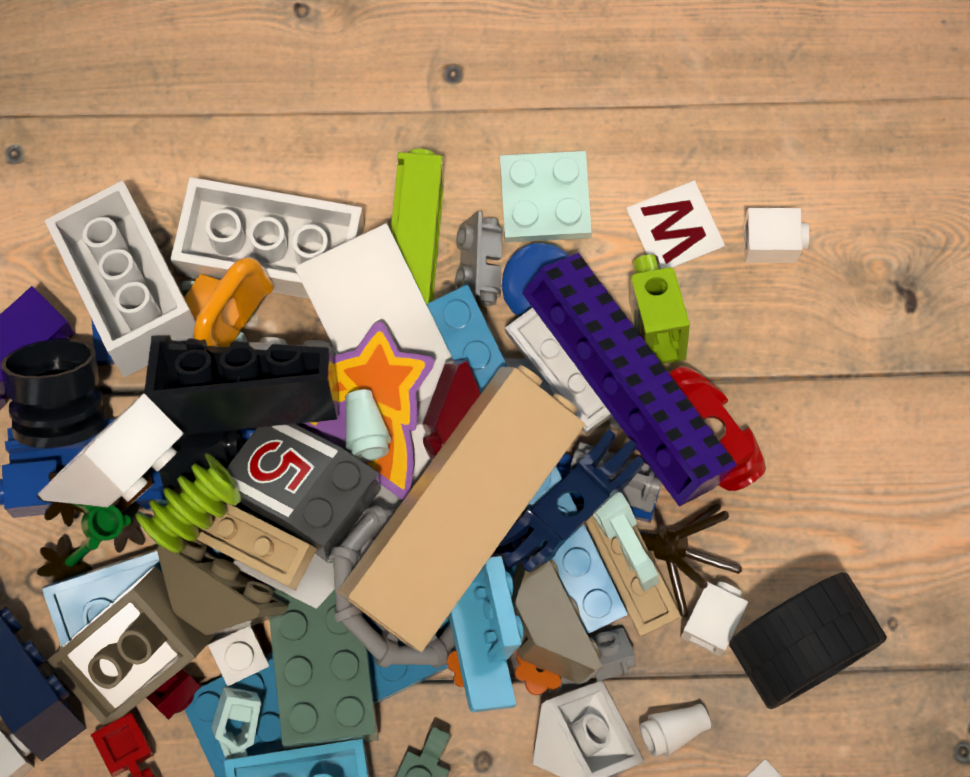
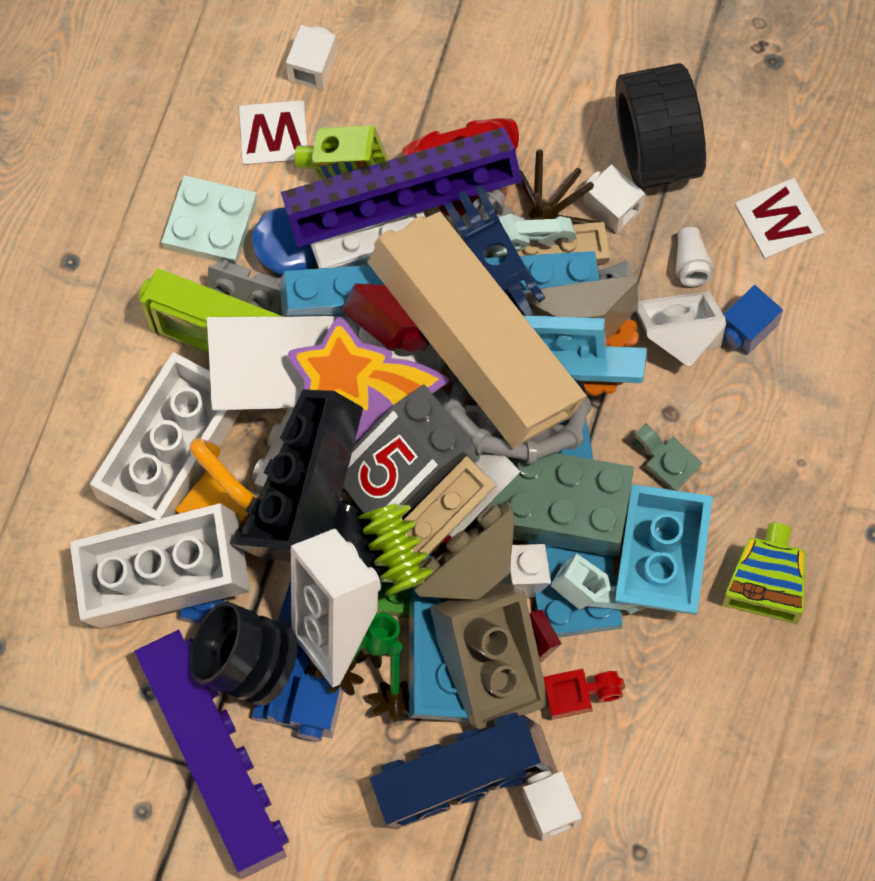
camera: 70 degrees left, 5 degrees down
(365, 427) = (376, 388): light aqua cone -> none

